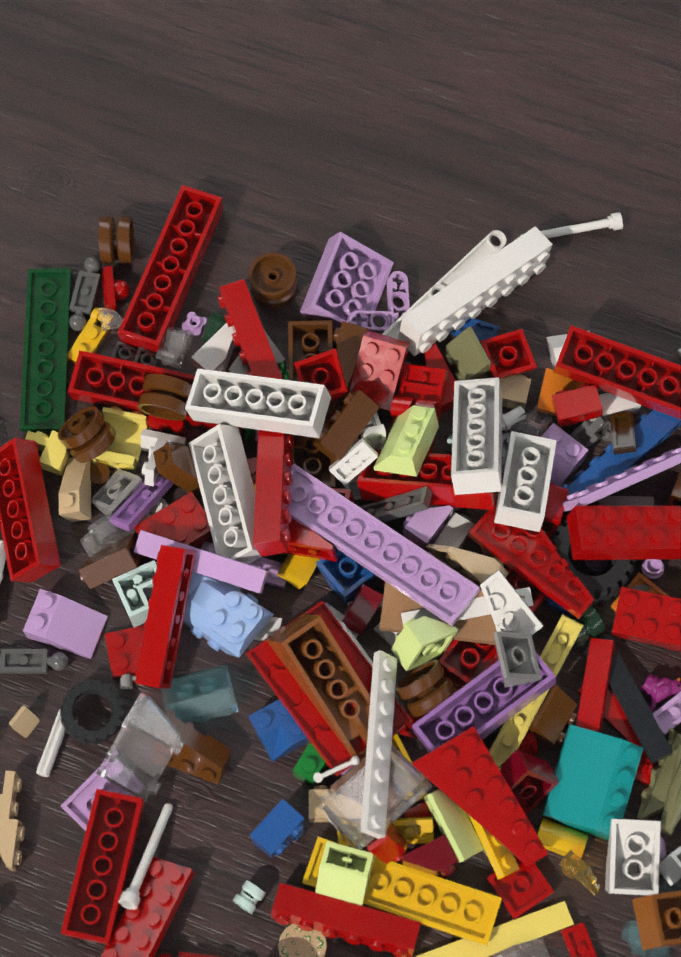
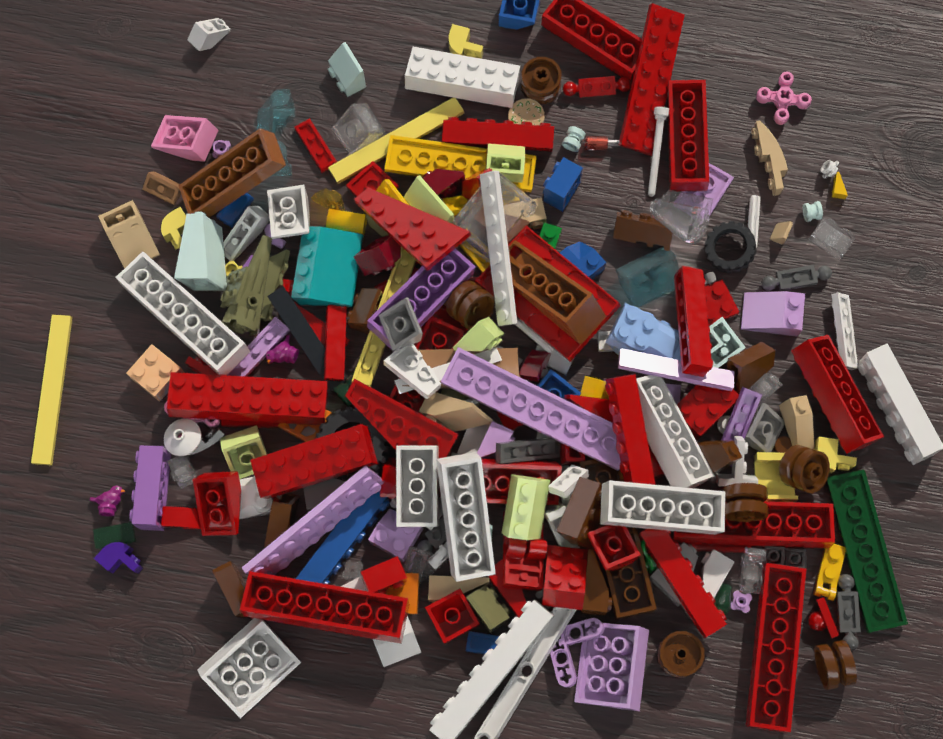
camera: 170 degrees right, 5 degrees up
(109, 319) = (818, 586): clear tile -> none
(216, 886) = (599, 142): none -> clear red piece
(318, 777) = (540, 220): white hinge -> none
(587, 433) = (369, 559): dark grey plate -> none
(623, 433) = (340, 562): dark brown tile -> none

